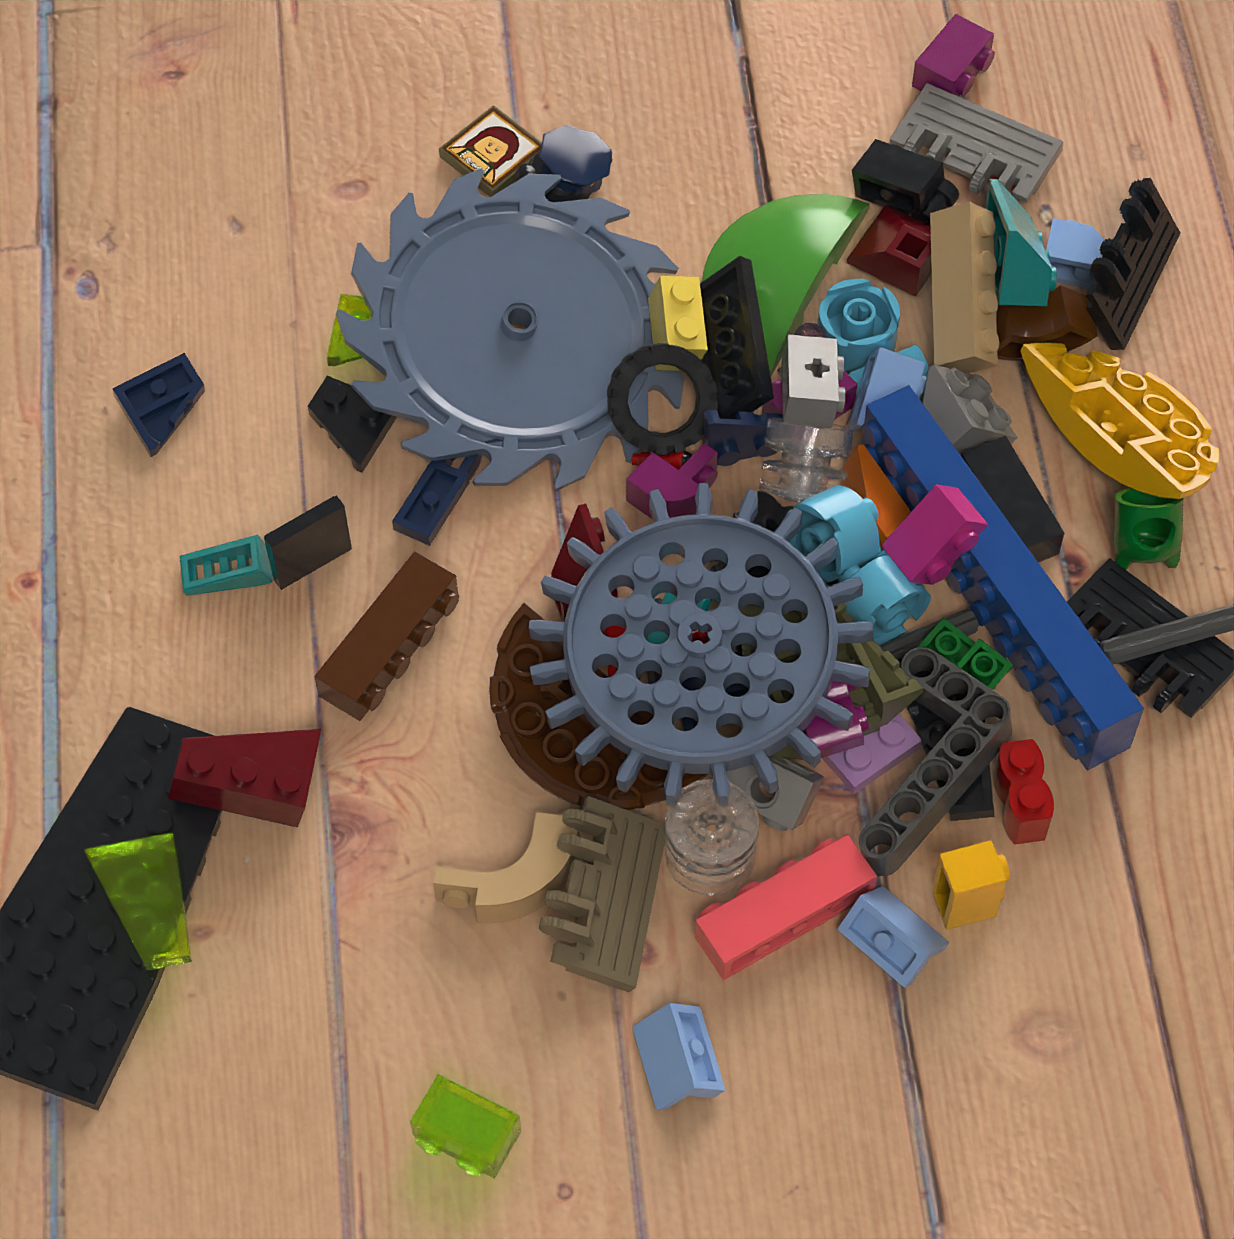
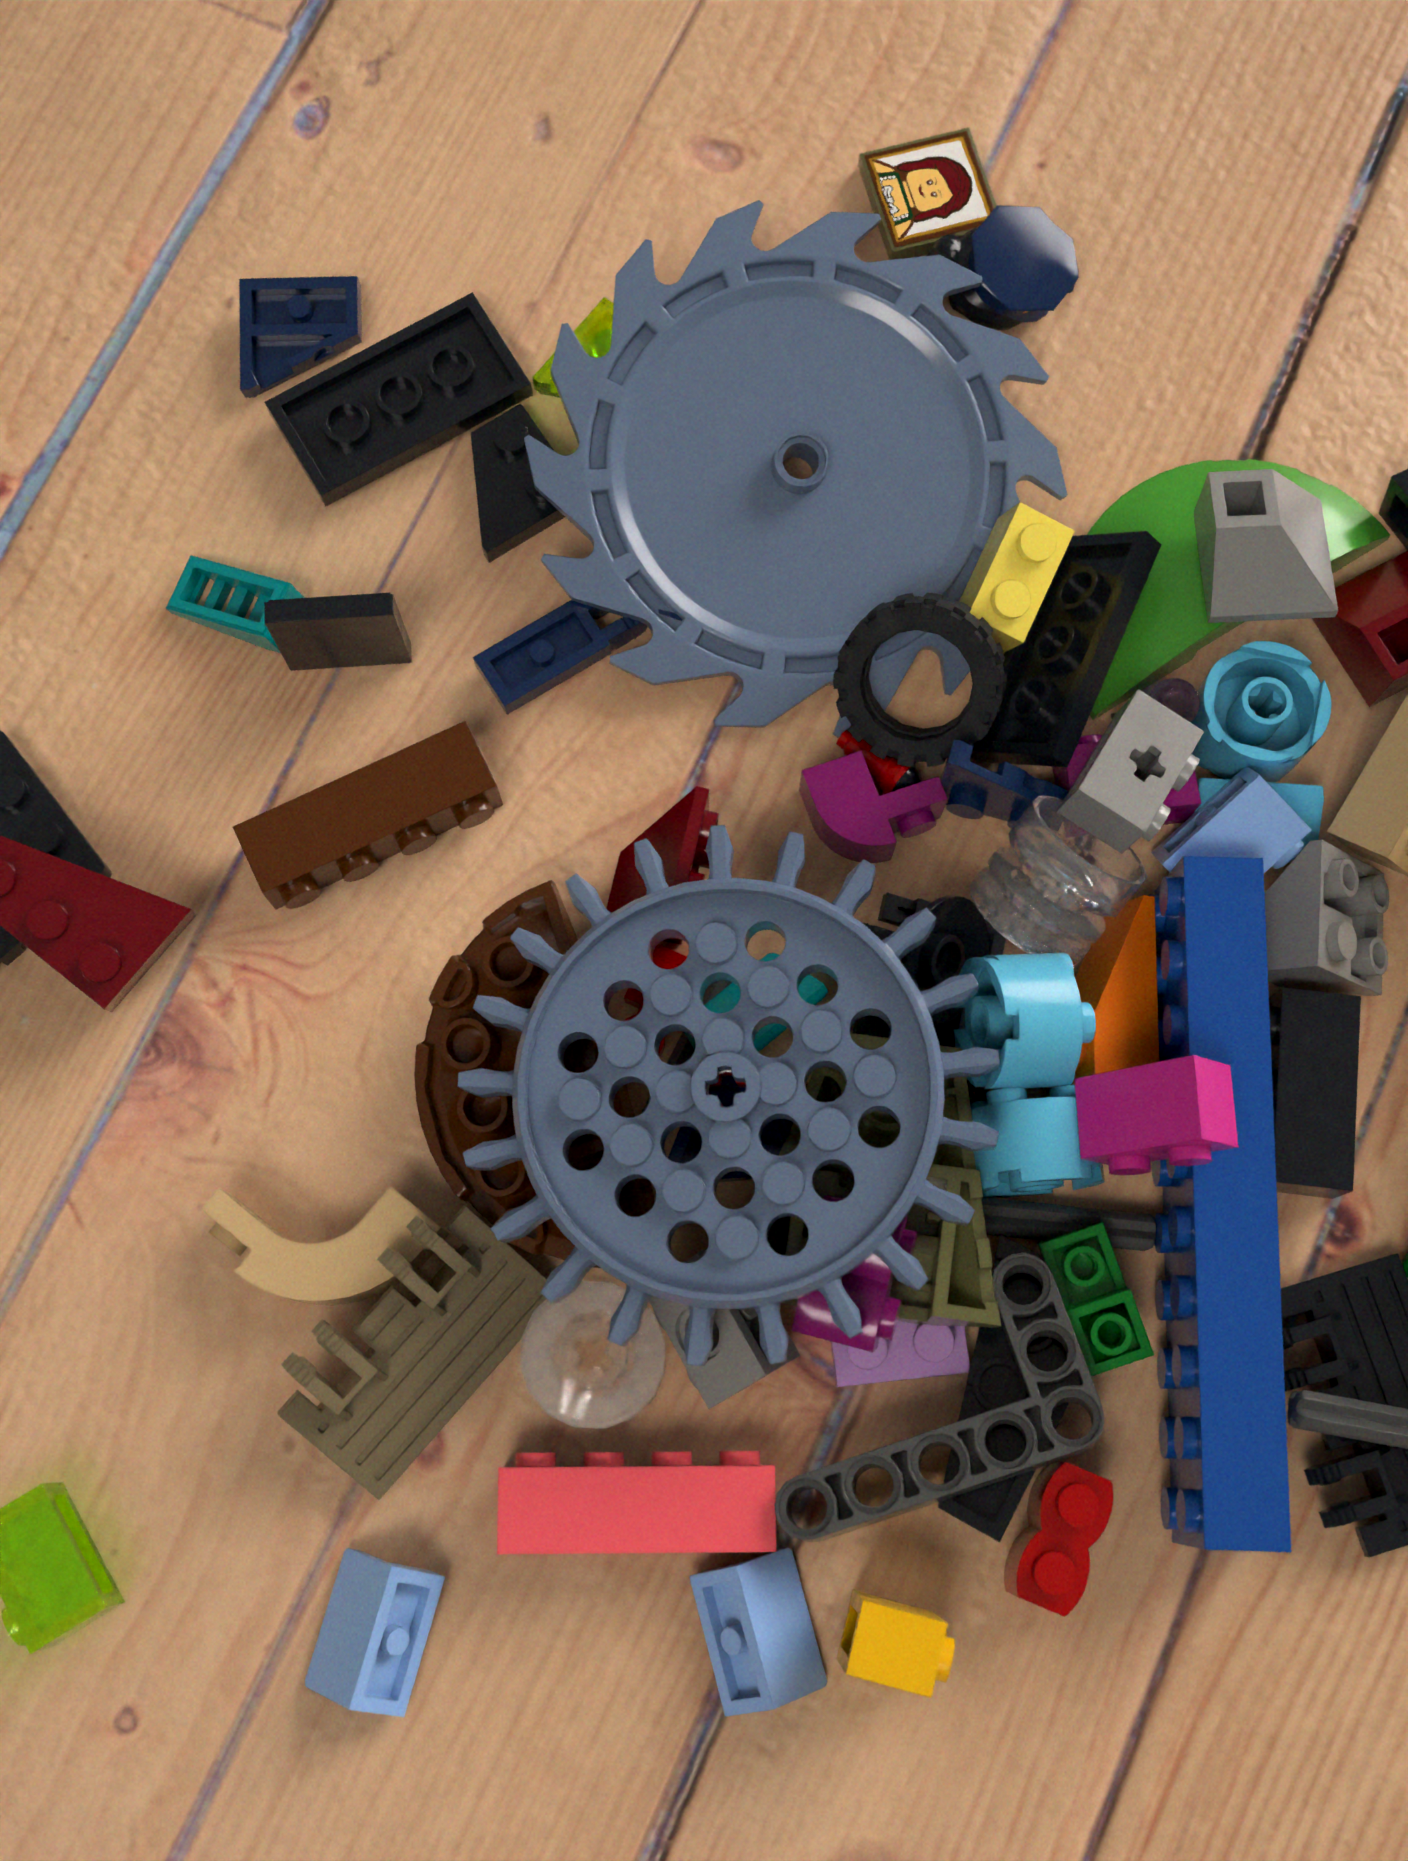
camera: 30 degrees right, 15 degrees up
(251, 409) = (399, 398): none -> black plate
(806, 236) = (1262, 549): none -> light grey slope

